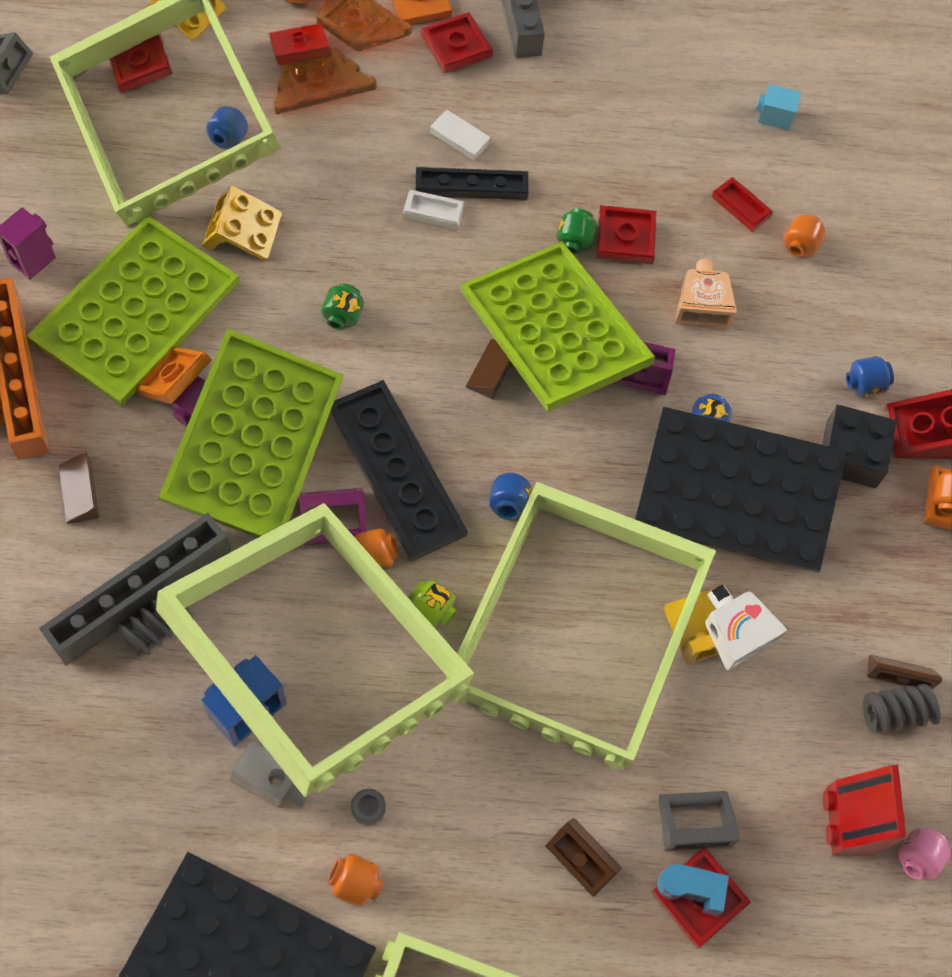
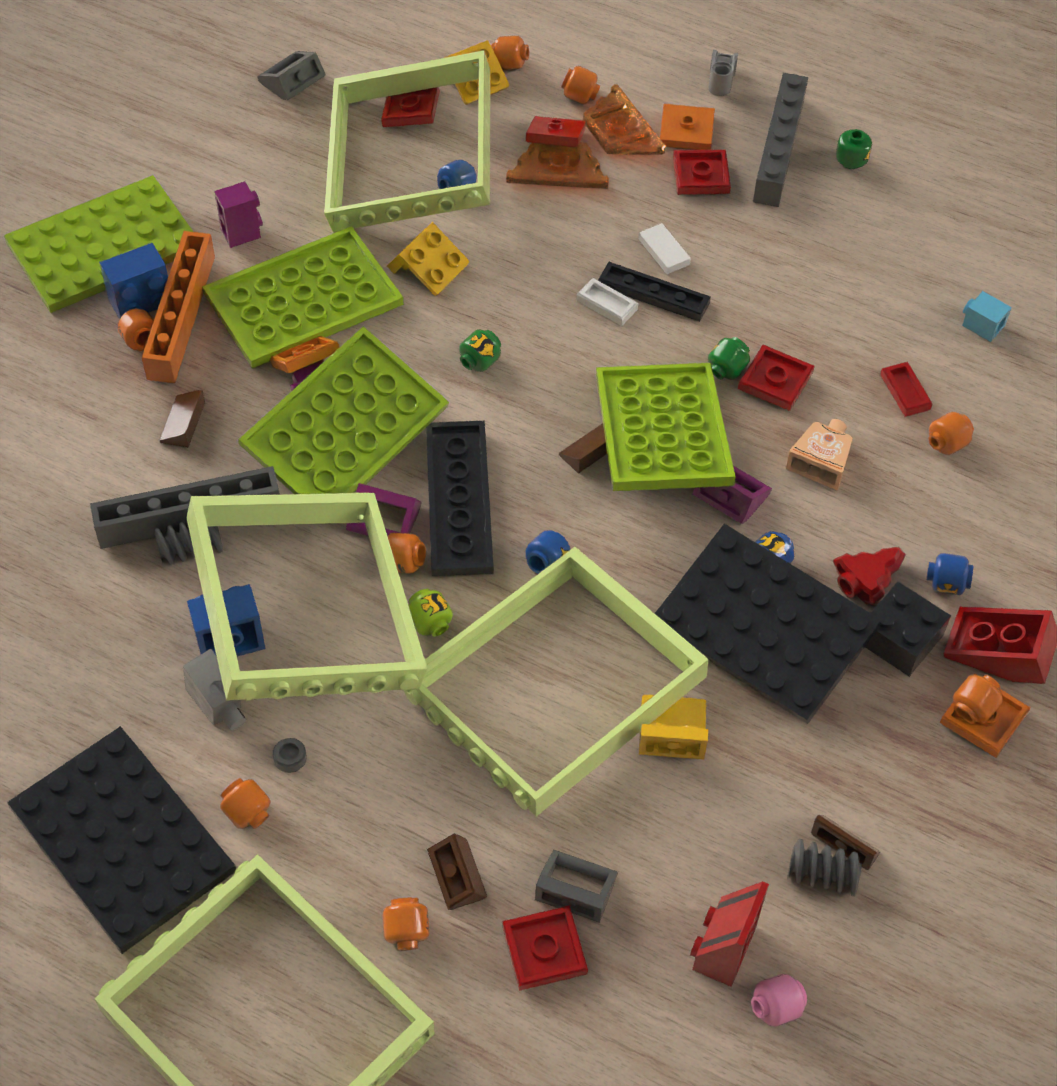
camera: 30 degrees right, 10 degrees down
(567, 933) = (405, 923): none -> orange head
(695, 885) = (538, 926): dark azure leg -> none
(741, 626) = (693, 726): white torso -> none
(798, 402) = (868, 573): none -> red rock

